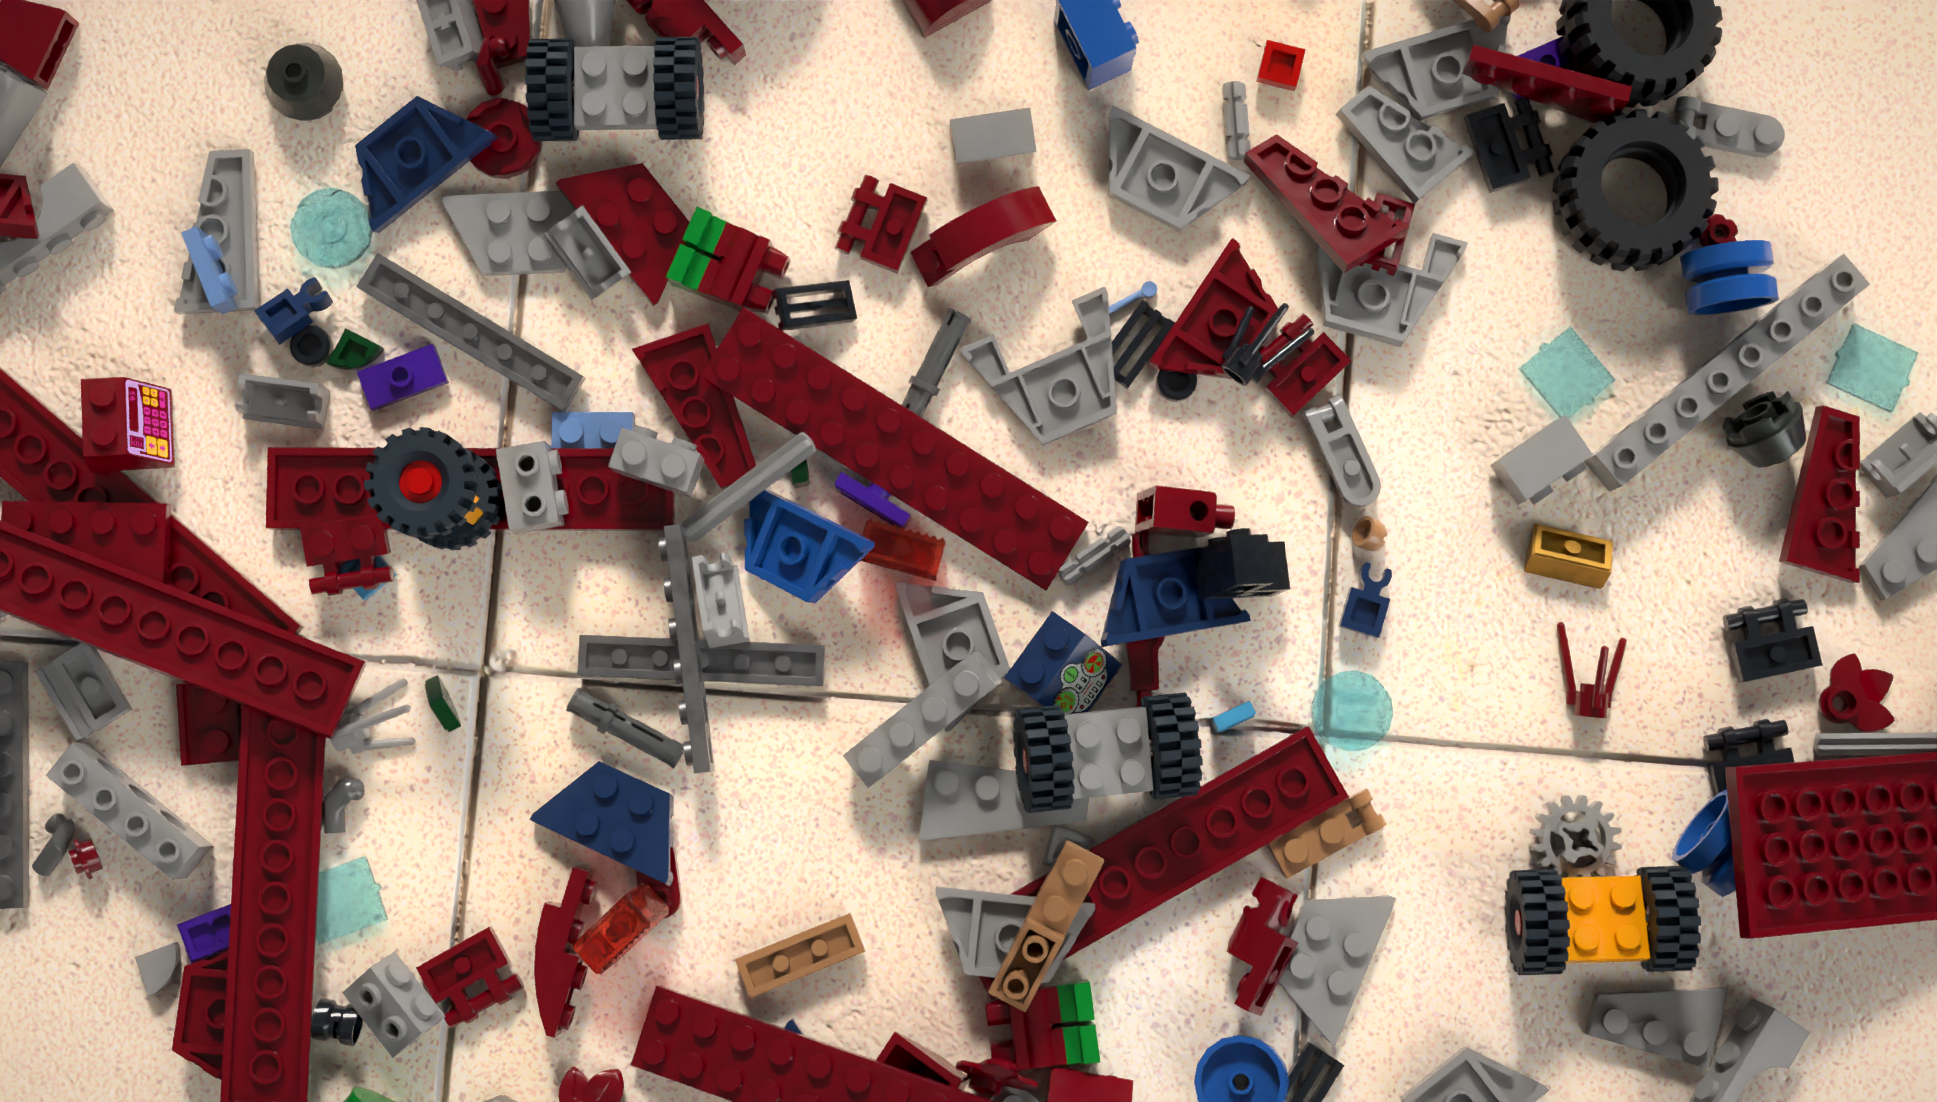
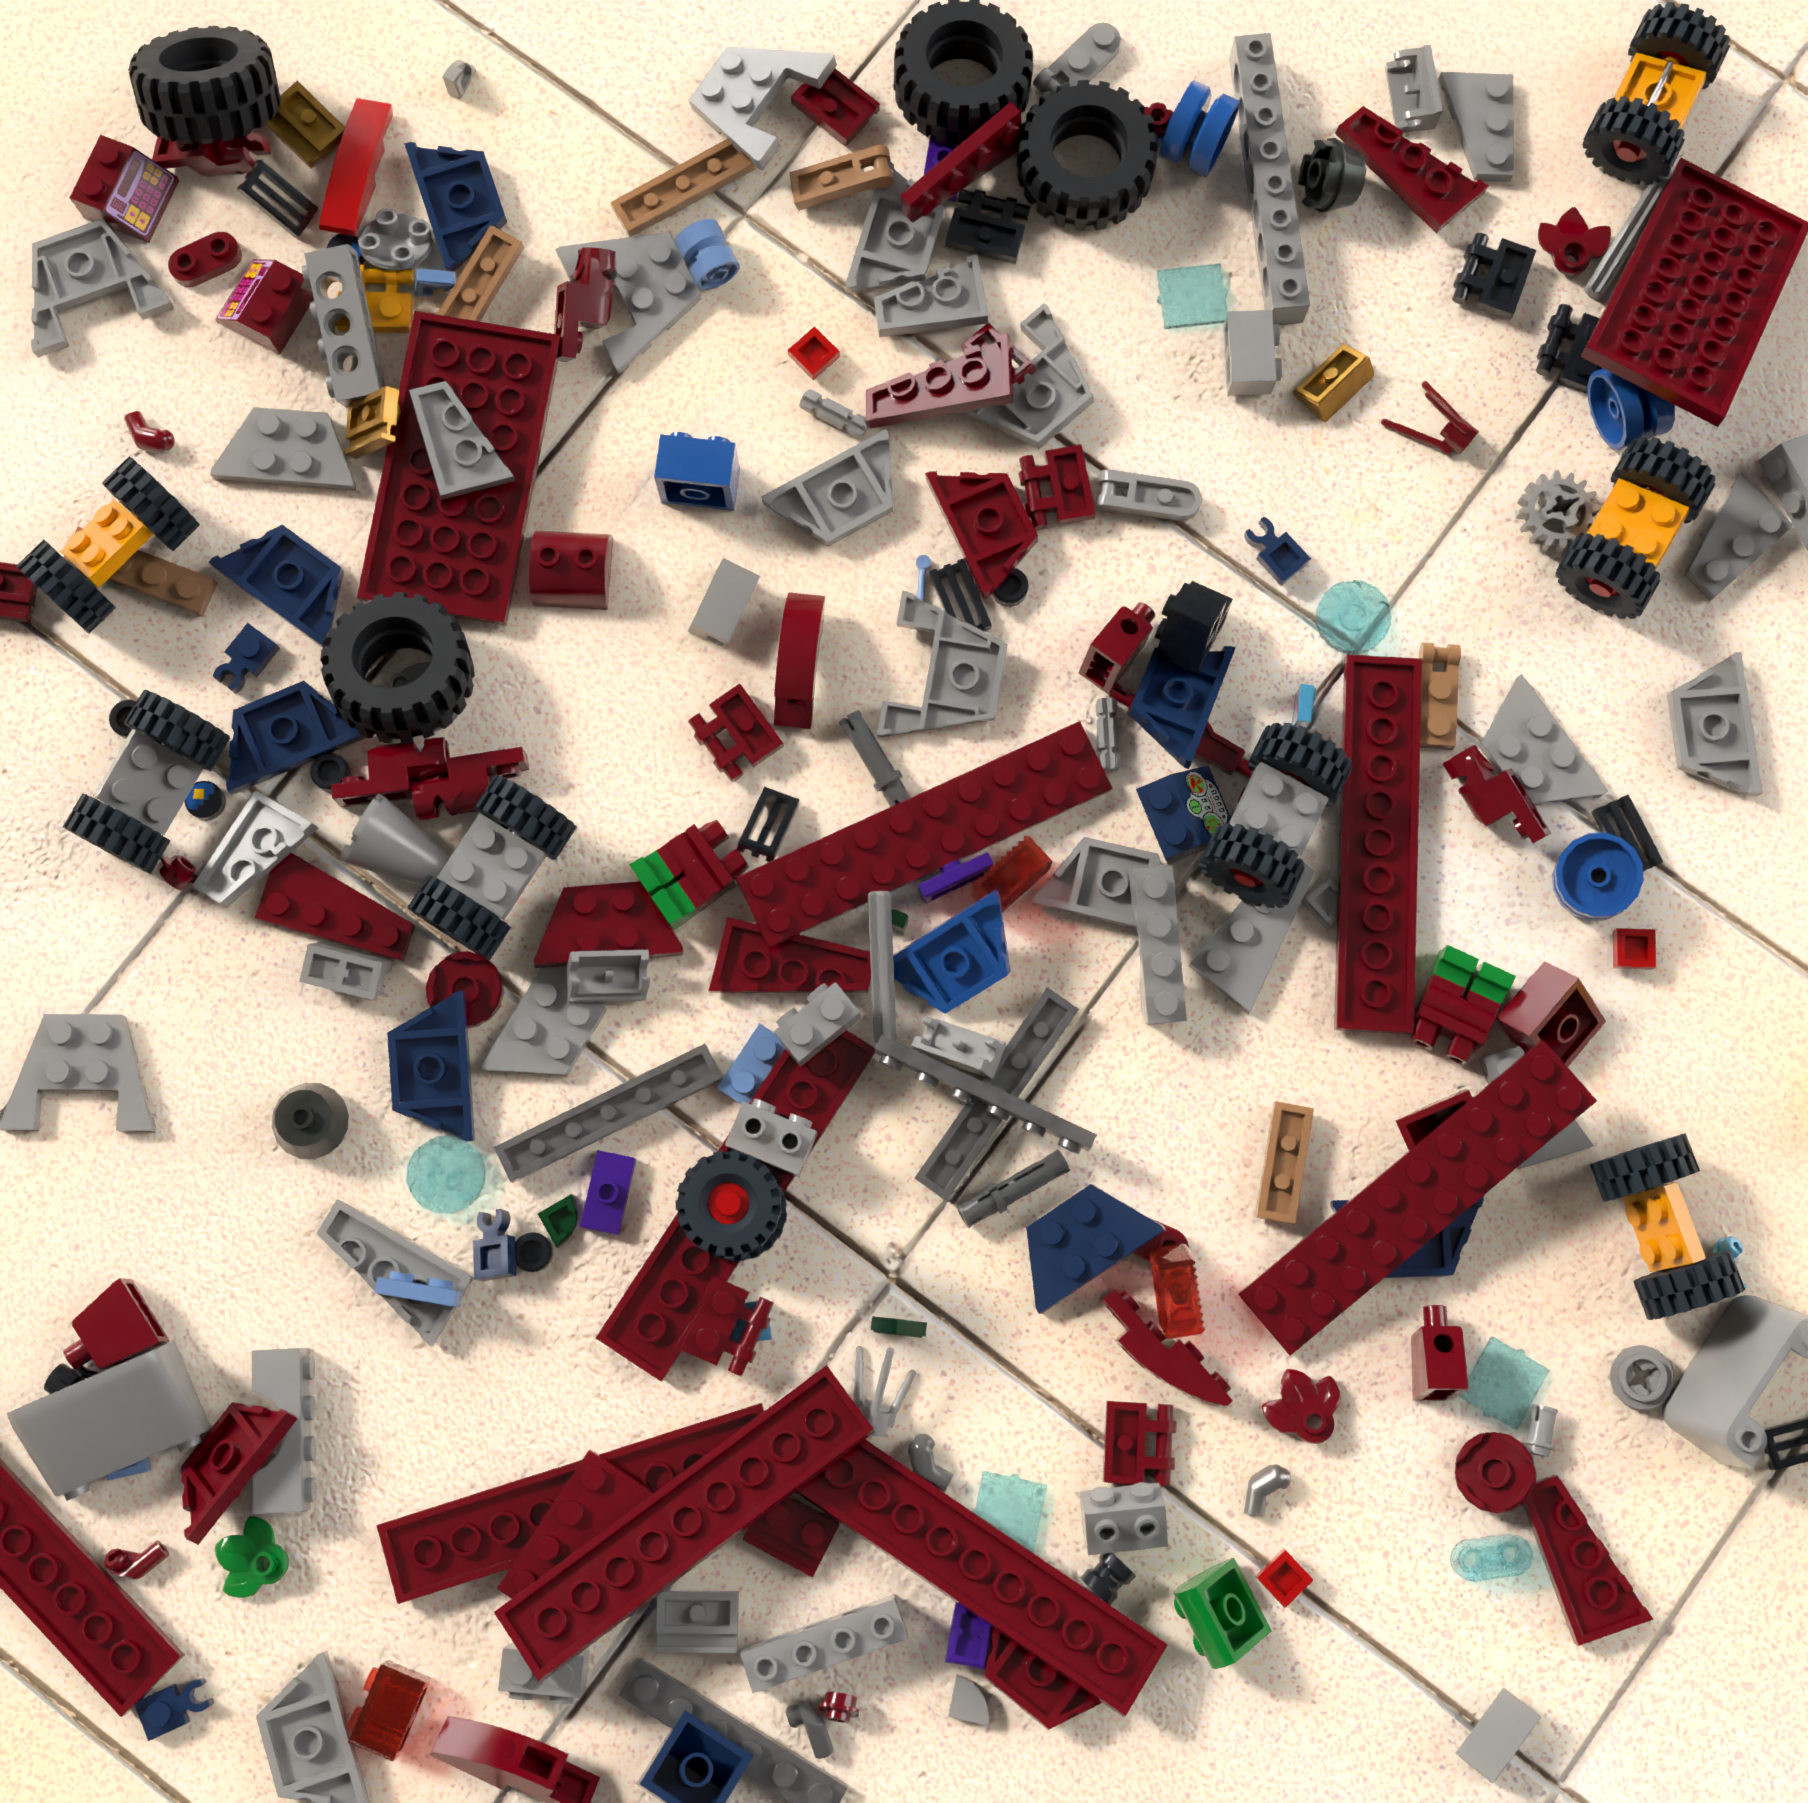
camera: 55 degrees left, 5 degrees down
(126, 425) = (500, 1443): dark red slope -> none
(282, 401) = (564, 1303): light grey hinge -> none
(486, 63) = (390, 950): dark red arm -> none
(987, 923) = (1371, 981): light grey wing -> none
(993, 1074) = (1475, 1068): dark red plate -> none
(1045, 926) = (1385, 947): medium nougat slope -> none
(1243, 362) = (1033, 522): black plant -> none
(1369, 534) = (1220, 511): medium nougat hinge -> none
(1872, 368) = (1330, 76): clear light blue piece -> none

